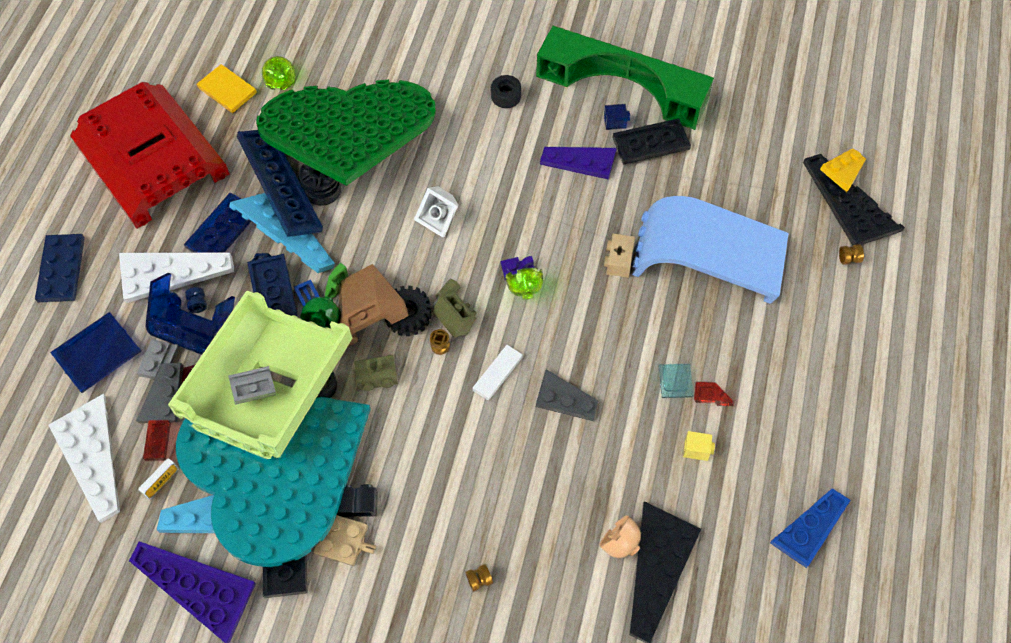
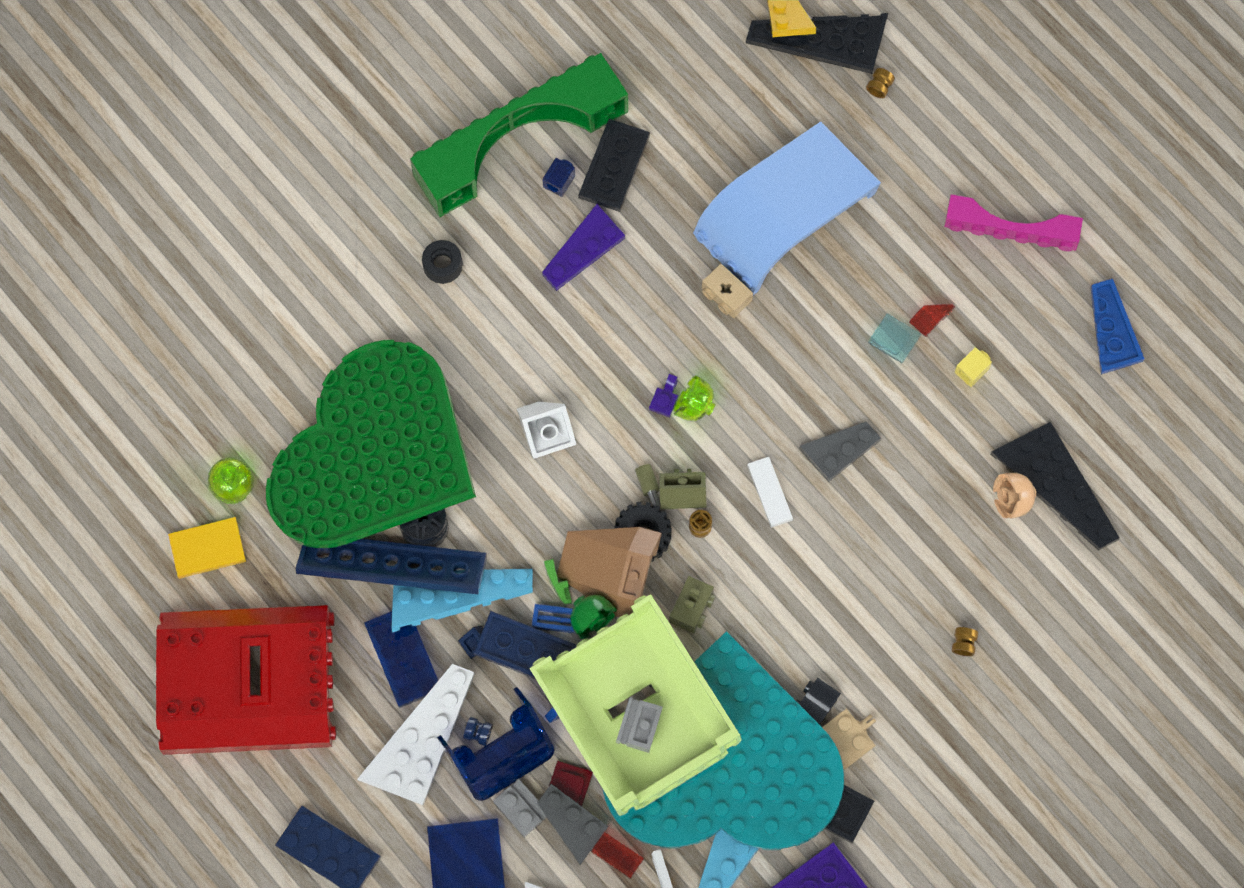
camera: 55 degrees left, 10 degrees up
(851, 438) = (968, 215): none -> dark pink arch

